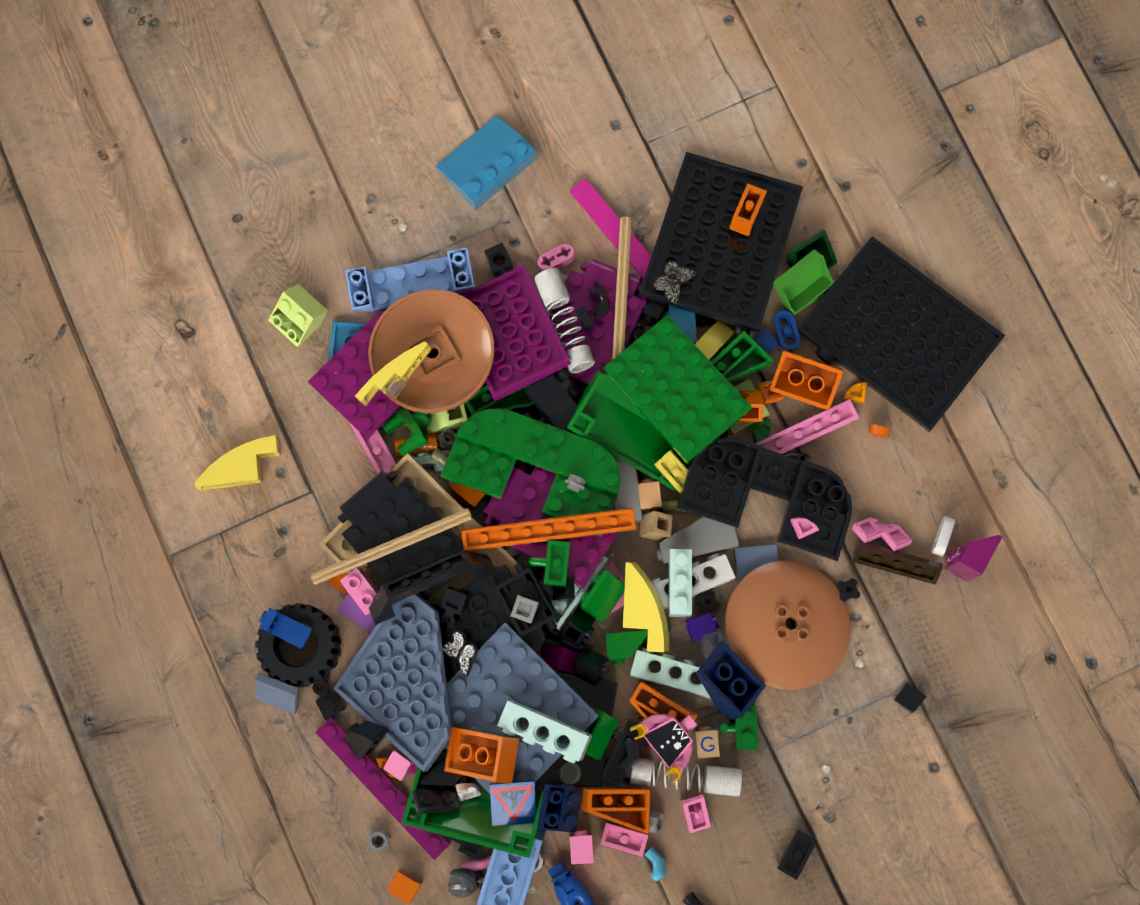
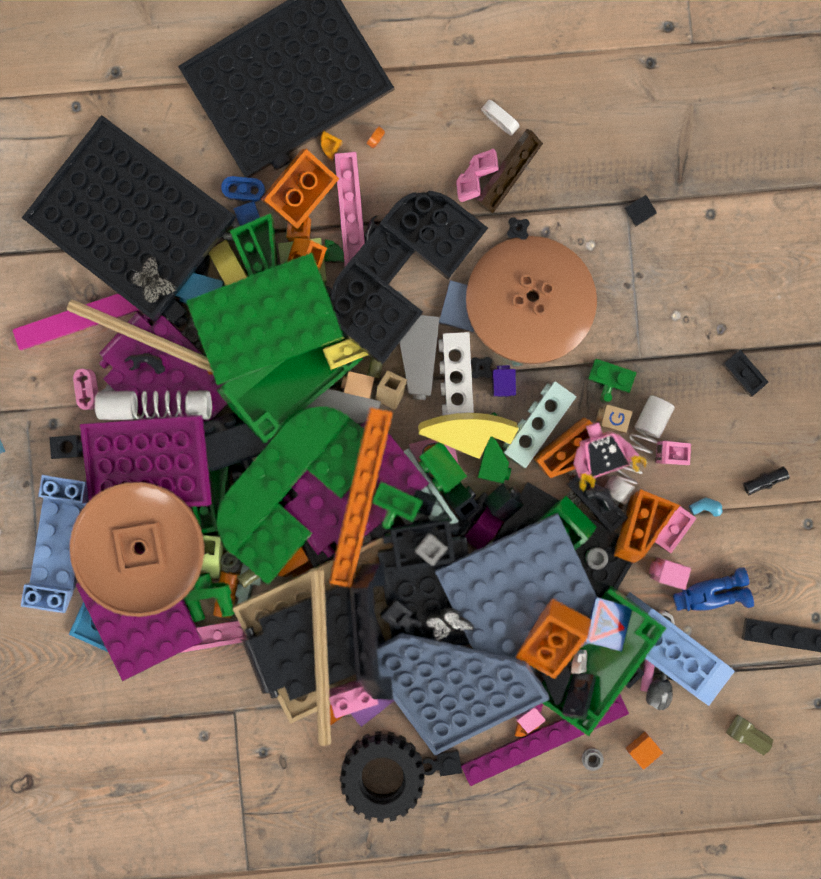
camera: 75 degrees left, 10 degrees up
(239, 465) = (182, 774): light yellow slope -> none
(276, 693) = (421, 813): sand blue tile -> none
(285, 628) = (363, 788): blue bracket -> none
(297, 314) = (49, 667): yellowish green slope -> none
(365, 738) = (493, 742): black slope -> none
(396, 387) = (162, 598): clear tile -> none
(401, 367) = (143, 586): light yellow slope -> none
(560, 807) = (627, 581): dark blue slope -> none
(575, 483) = (324, 455): light grey plate -> none
(578, 738) = (556, 559): light aqua brick -> none
(585, 319) = (160, 384): black tile -> none
(656, 821) = (668, 493): light grey tile -> none
(680, 582) = (457, 388): light aqua brick -> none
(710, 642) = (529, 377): clear brick -> none
(729, 682) = (568, 375): dark blue slope -> none
(748, 209) = (106, 178): orange brick -> none
(803, 282) = (201, 152): bright green container -> none
(803, 527) = (445, 248): bright pink tile -> none
(817, 242) = (177, 134): dark green slope -> none
(972, 558) = (535, 96): magenta slope -> none

